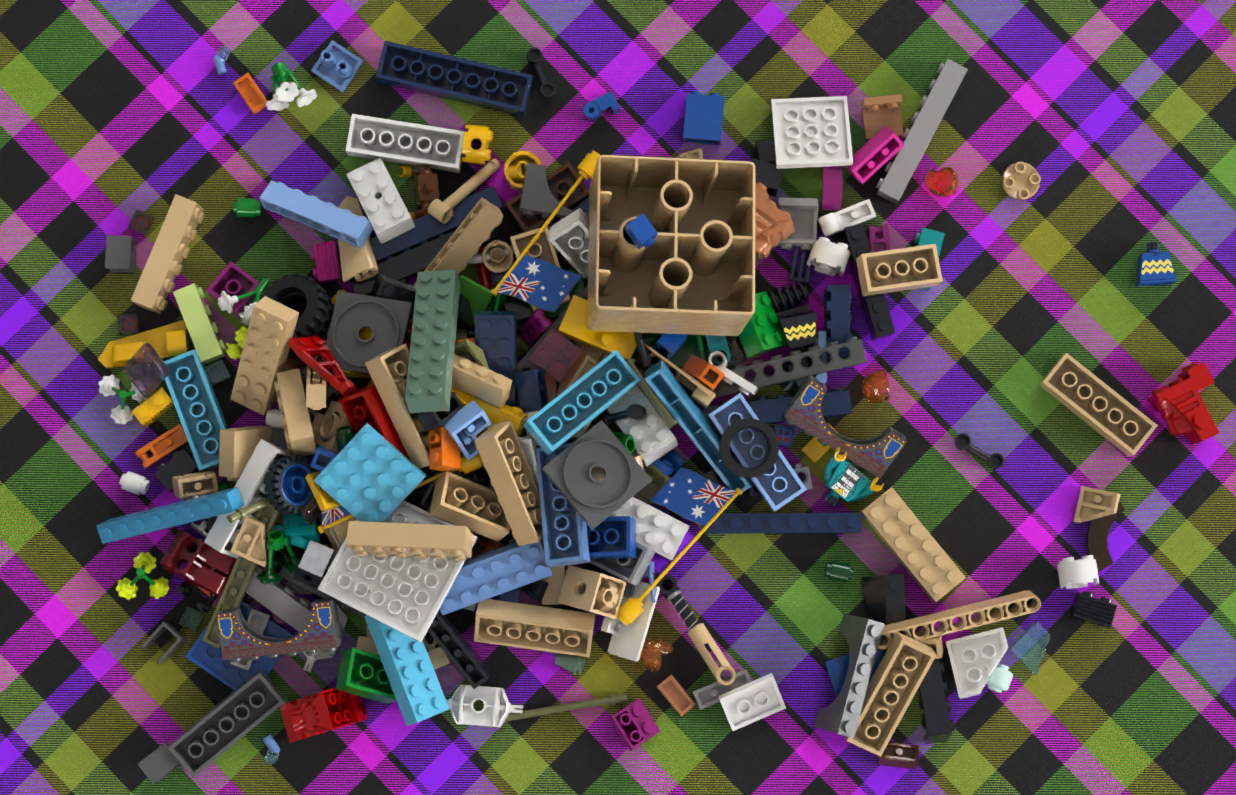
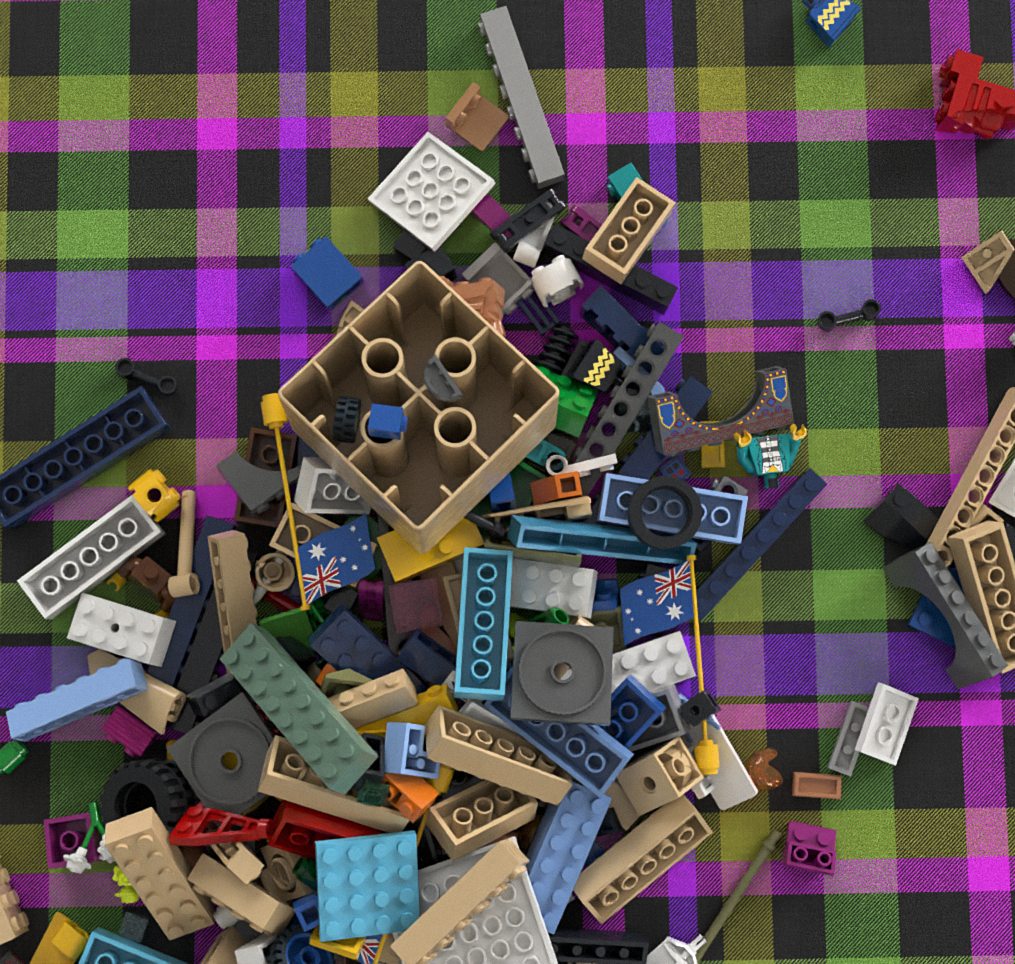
camera: 50 degrees left, 0 degrees up
(199, 324) = (73, 902): yellowish green brick -> none
(425, 429) = (372, 793): none -> clear green tile
(515, 168) = (210, 480): yellow brick -> none
(570, 662) = (701, 853): sand green cone -> none
(601, 105) = (227, 352): blue leg -> none
(622, 209) = (346, 419): none -> black wheel
(634, 411) = (534, 583): black bar -> none
(653, 578) = (699, 708): none -> black brick
(693, 240) = (439, 382): none -> dark grey tile
(698, 633) = (787, 714): piece -> none
(838, 571) = (841, 537): dark green brick -> none
(849, 205) = (528, 220): none -> black plate
(874, 154) = (504, 155): dark pink brick -> none
(874, 384) = (705, 350): clear orange helmet -> none
(912, 545) = (878, 450): tan brick -> none
(939, 181) = (578, 123): clear orange helmet -> none
(1021, 181) = (646, 55): tan dish -> none
(1098, 405) = (905, 175): tan brick -> none

